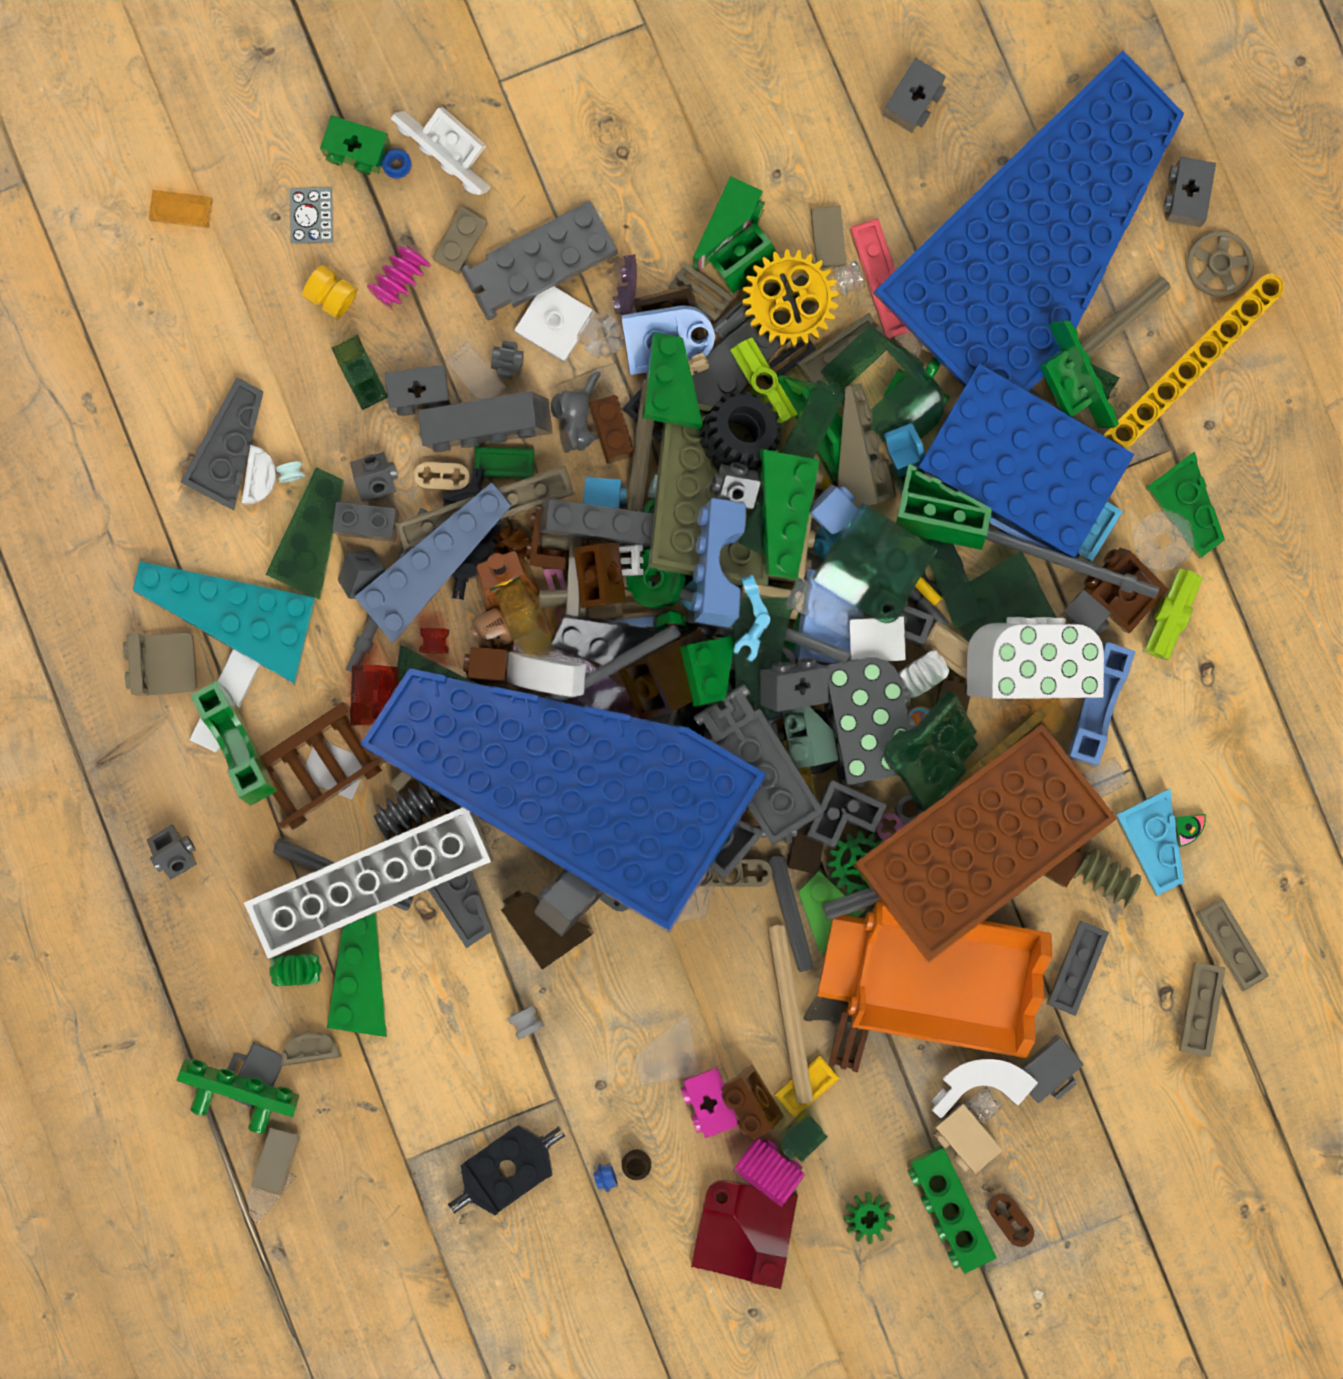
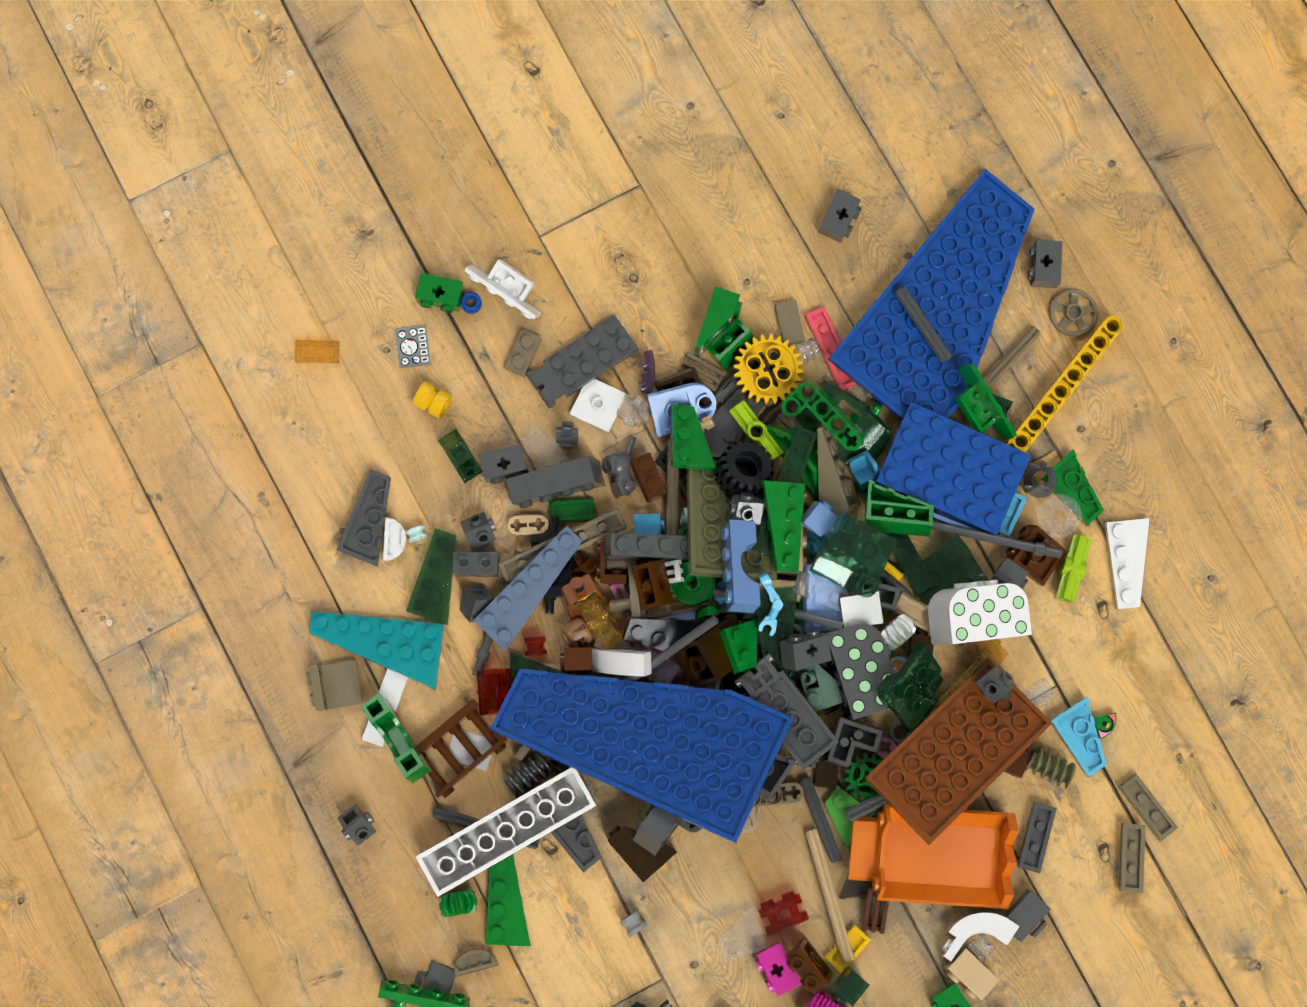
camera: 10 degrees left, 5 degrees down
(397, 276) = (480, 383): dark pink piece -> none
(709, 1022) = (770, 908): none -> clear red brick
(860, 374) = (827, 418): none -> green beam
(1009, 258) = (923, 324): none -> dark grey axle
(1047, 759) = (996, 685): none -> dark grey brick
(1096, 712) = (1024, 657): medium blue arch -> none
(1142, 503) = (1040, 490): none -> dark grey piece
(1249, 605) = (1127, 558): none -> white wing

